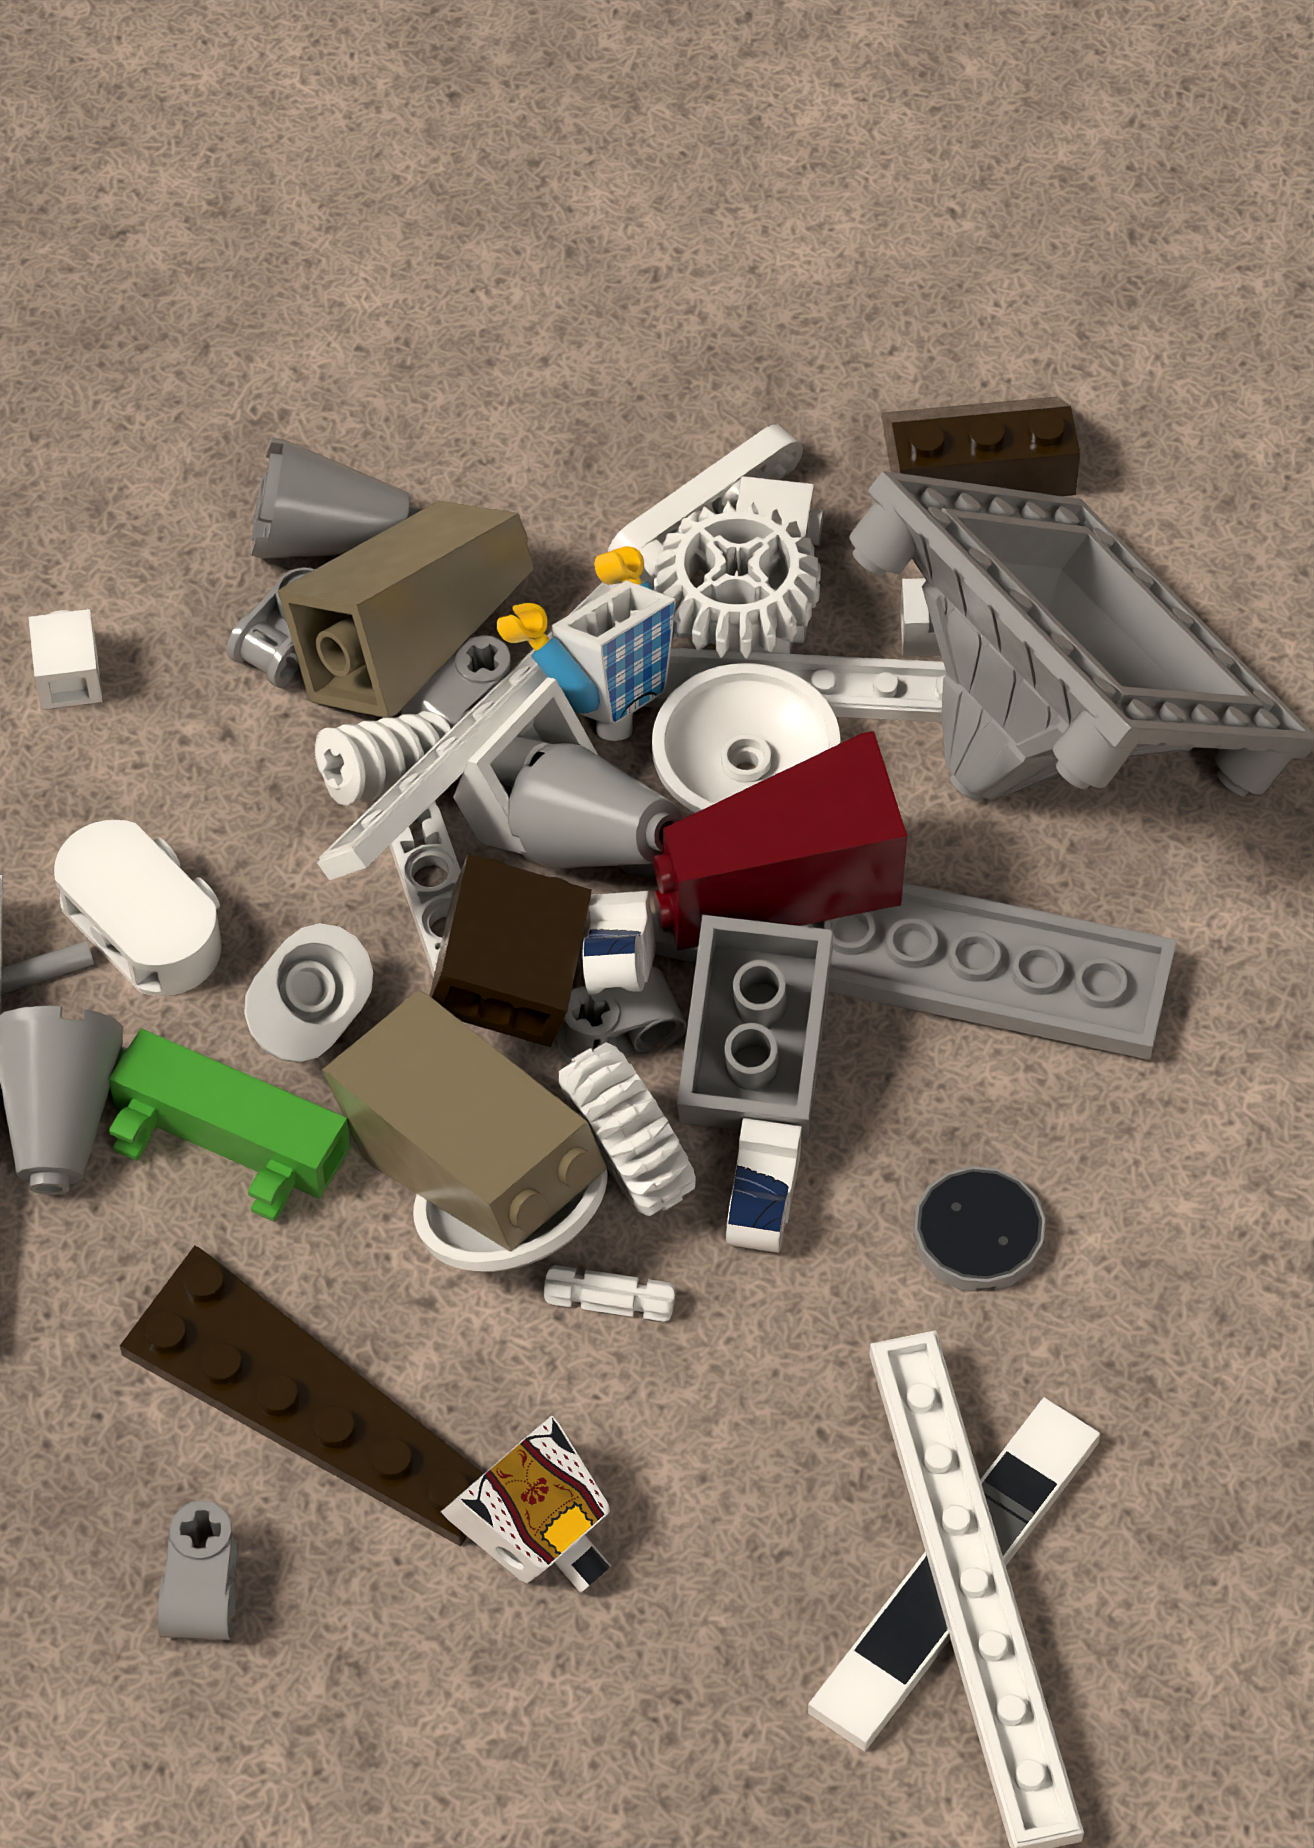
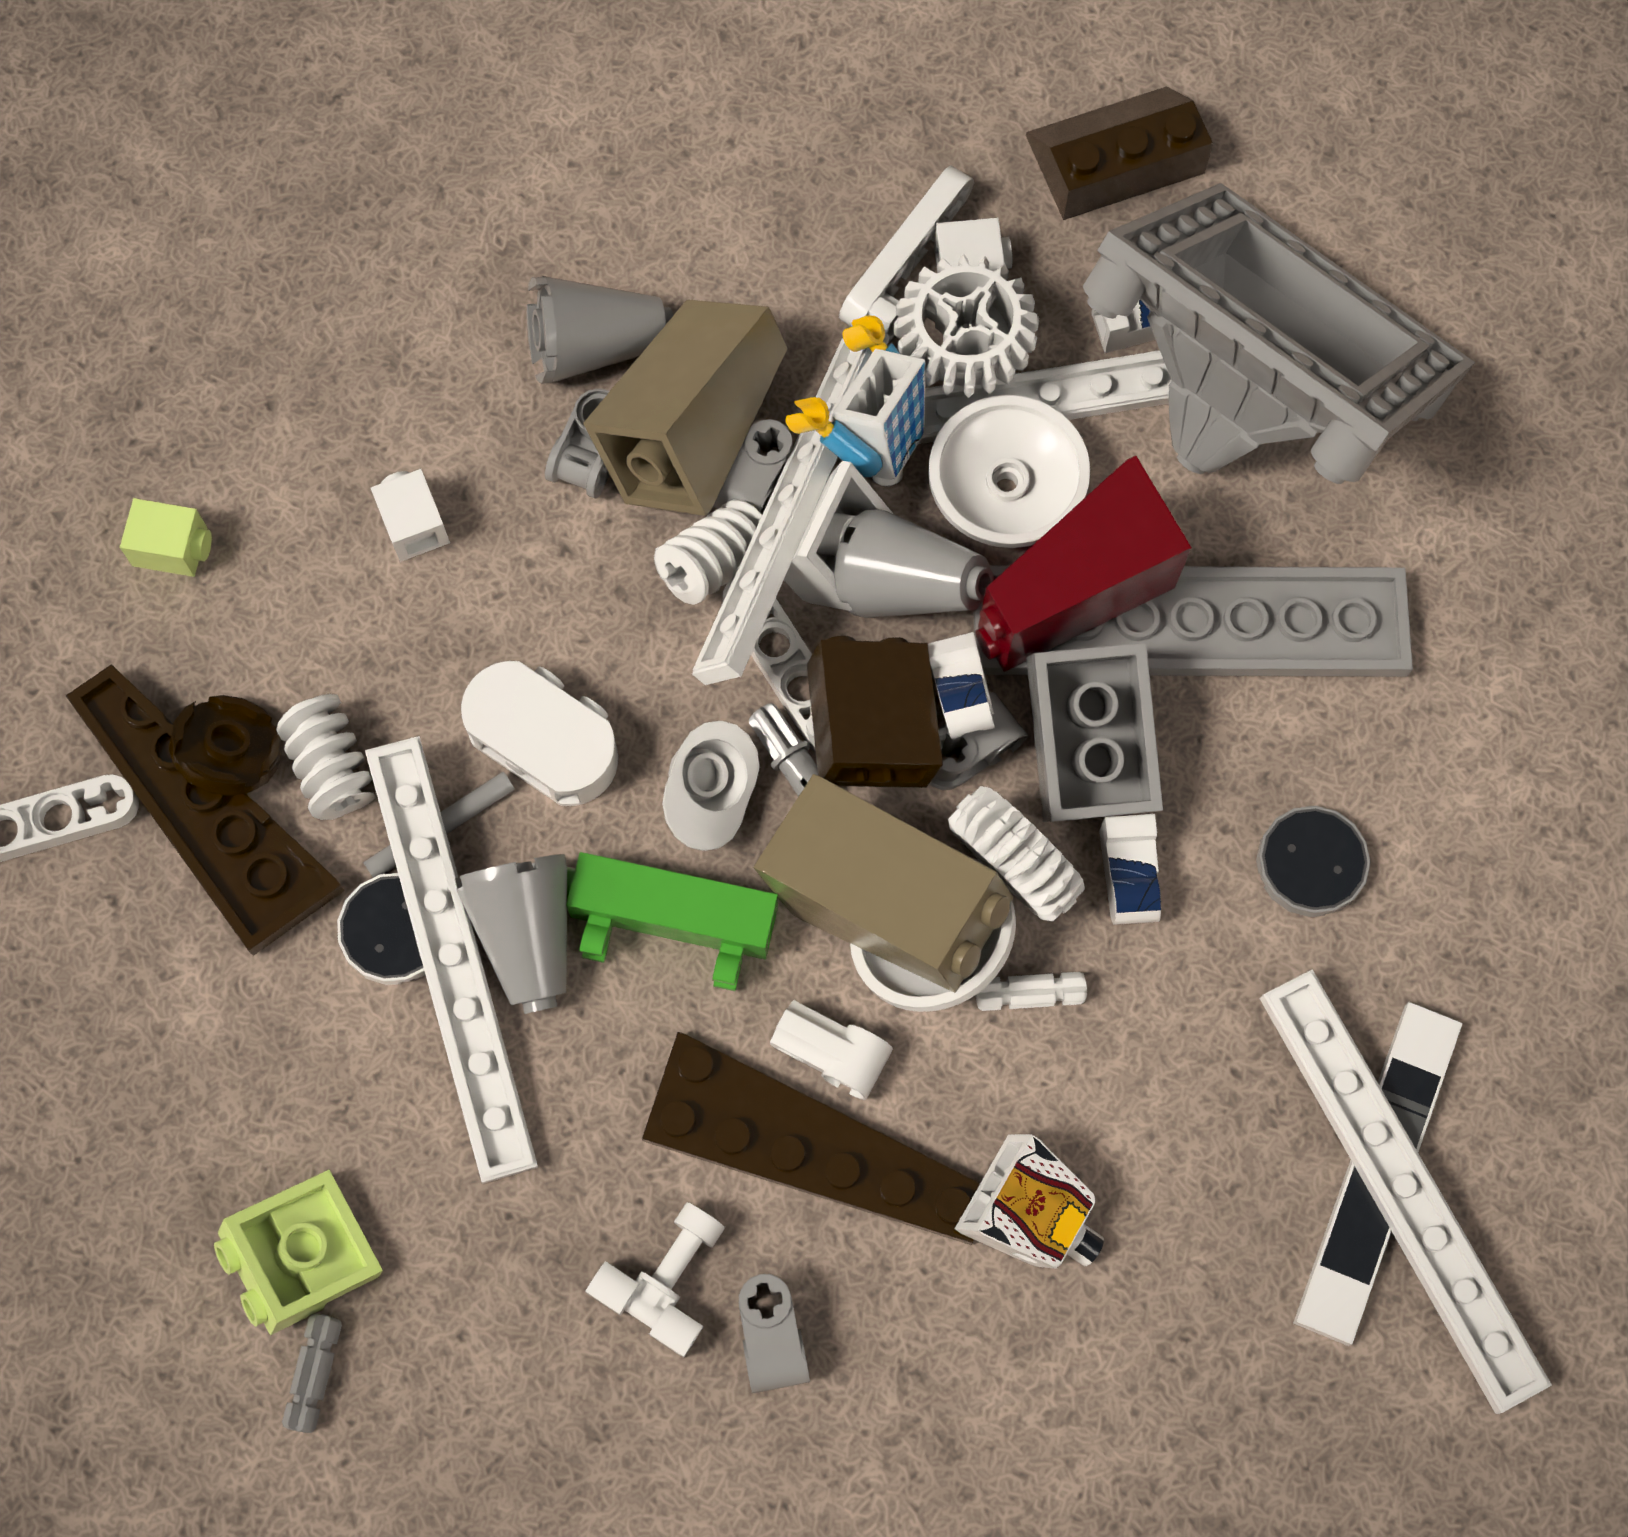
camera: 15 degrees left, 15 degrees up
(80, 1509) = (652, 1297): none -> white bar
(371, 1308) = (840, 1053): none -> white piece
(402, 966) = (783, 745): none -> light grey axle

